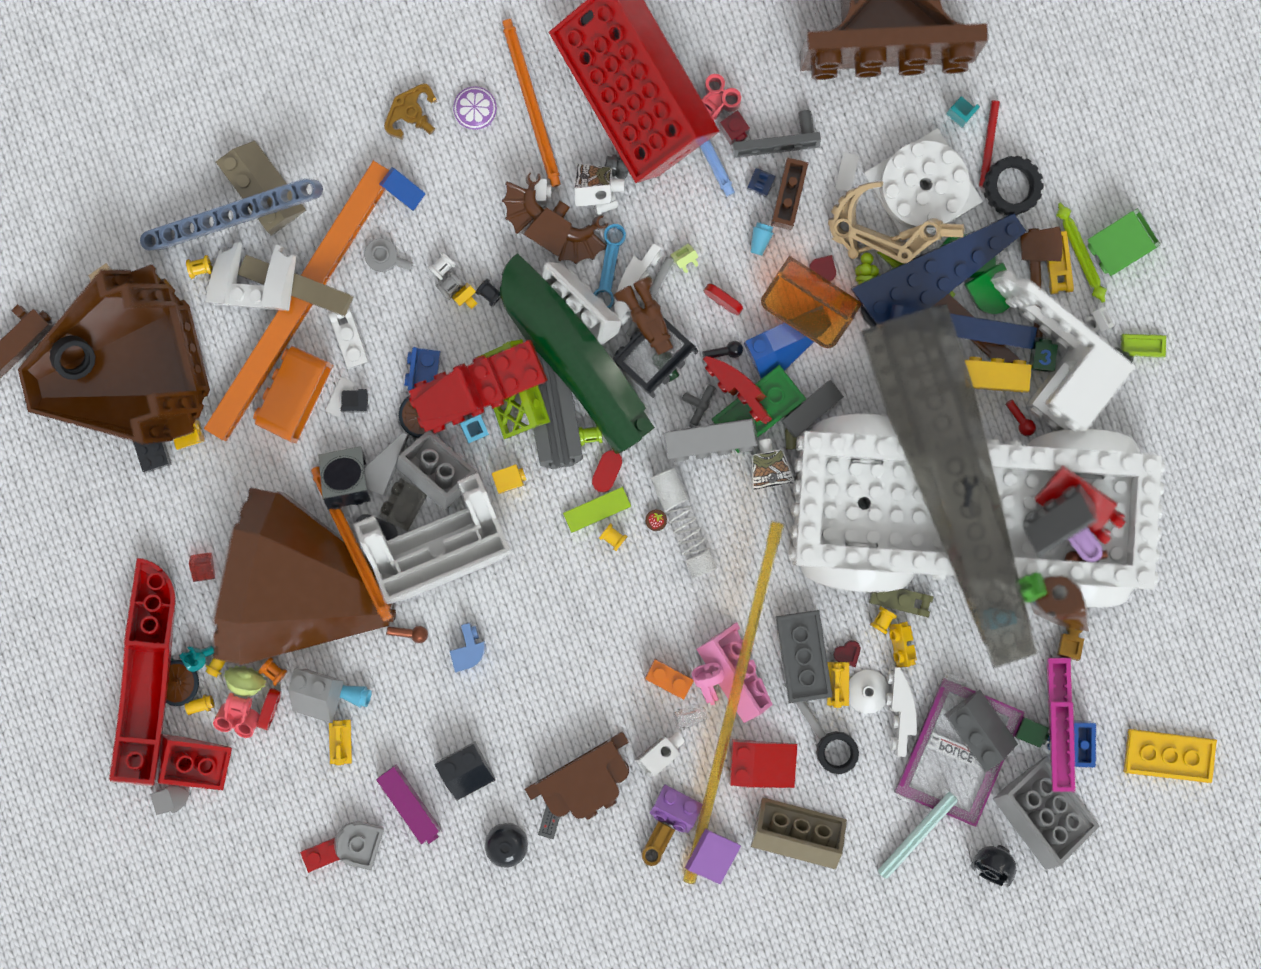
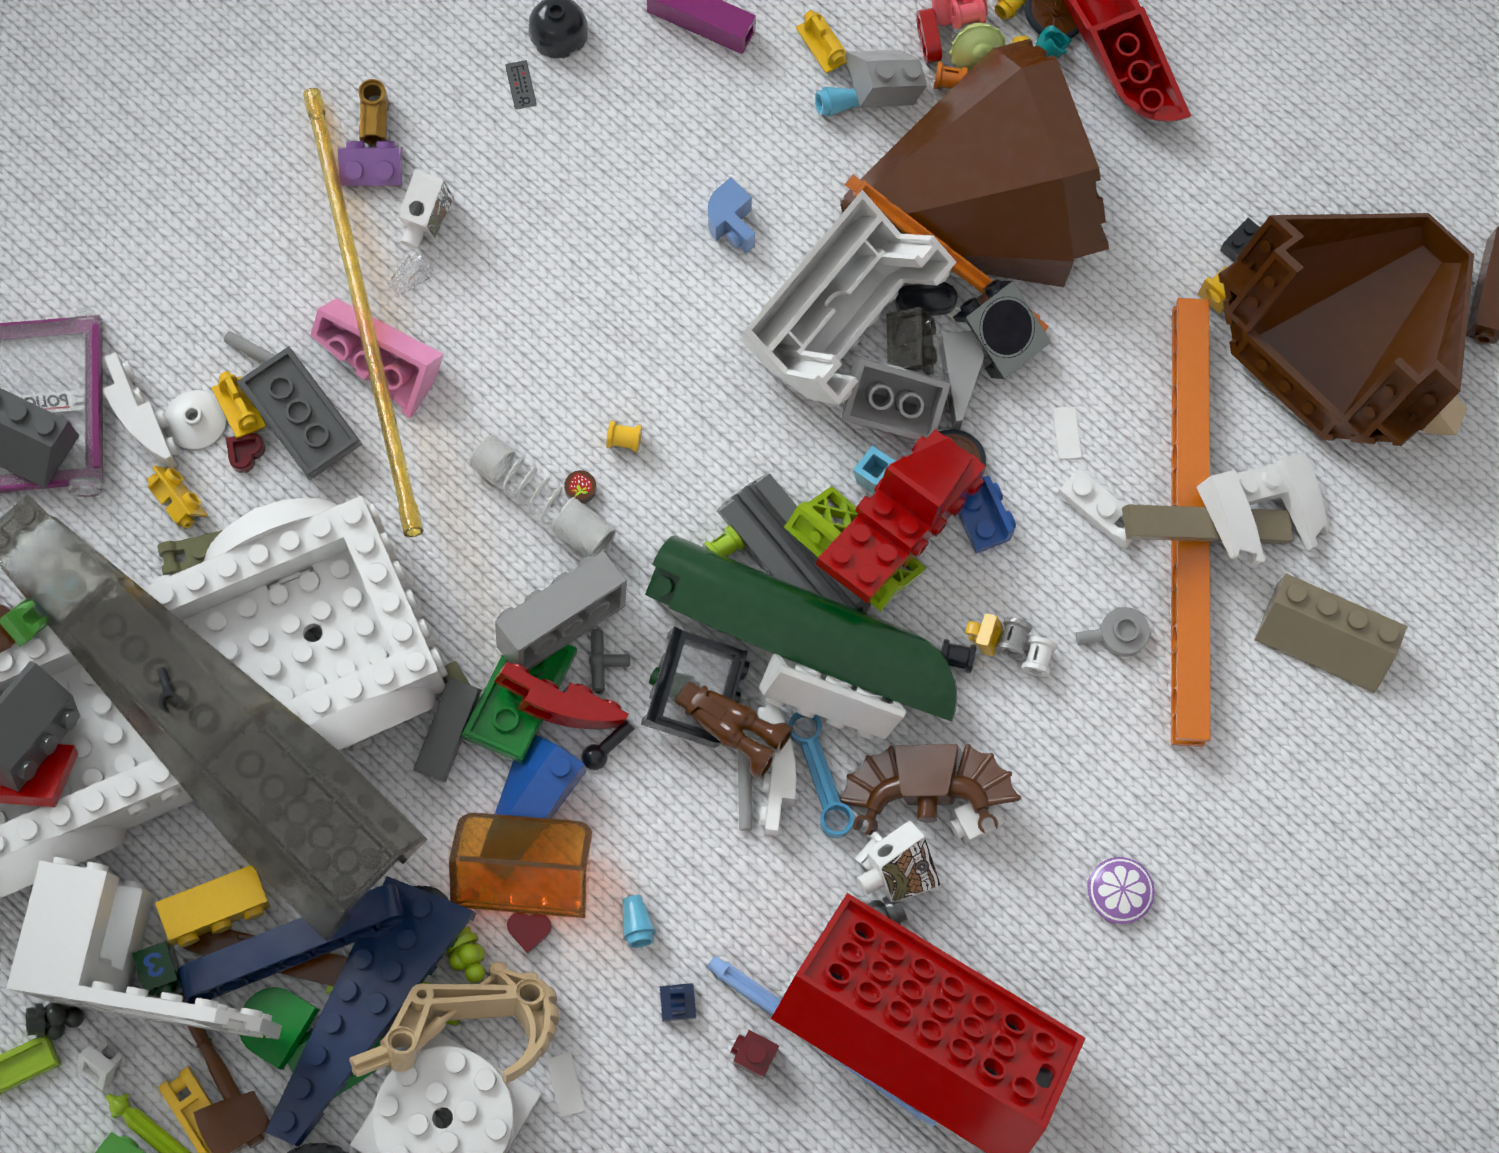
camera: 150 degrees right, 15 degrees down
(80, 371) = (1408, 282): black tyre -> none
(199, 266) = (1341, 493): yellow bush -> none
(202, 567) = (1110, 153): clear red slope -> none
(240, 214) = (1341, 567): sand blue beam -> none
(292, 394) = (1126, 400): orange windscreen -> none
(354, 401) = (1044, 432): black panel -> none
(402, 189) = (1149, 725): blue tile -> none
(406, 108) = (1209, 839): pearl gold piece -> none
(418, 634) = (802, 206): copper bar -> none
(464, 771) = (657, 82): black slope -> none
(508, 478) = (797, 437): yellow brick -> none
(531, 102) = (1052, 940): orange piece -> none
(585, 782) = (499, 138): reddish brown brick -> none
(597, 509) = (663, 461): lime tile -> none
(607, 471) = (677, 511): red tile -> none
(669, 679) = (459, 304): orange brick -> none
(684, 256) = (727, 840): yellowish green tile -> none
(705, 680) = (414, 316): bright pink piece -> none
(712, 856) = (295, 130): medium lavender tile -> none
(715, 99) = (802, 1080): coral piece -> none
(723, 299) = (644, 811): red tile -> none
(762, 764) = (288, 265): red slope -> none
(769, 467) = (464, 624): torso -> none
(789, 193) = (629, 1001): reddish brown brick -> none
(799, 833) = (200, 210): dark tan slope -> none
(806, 140) = (645, 1095): dark grey piece -> none
(854, 755) = (183, 308): black tyre -> none
(883, 620) = (216, 511): yellow bush -> none
(917, 835) = (45, 279): light aqua axle -> none
(1026, 426) = (140, 864): red bar -> none

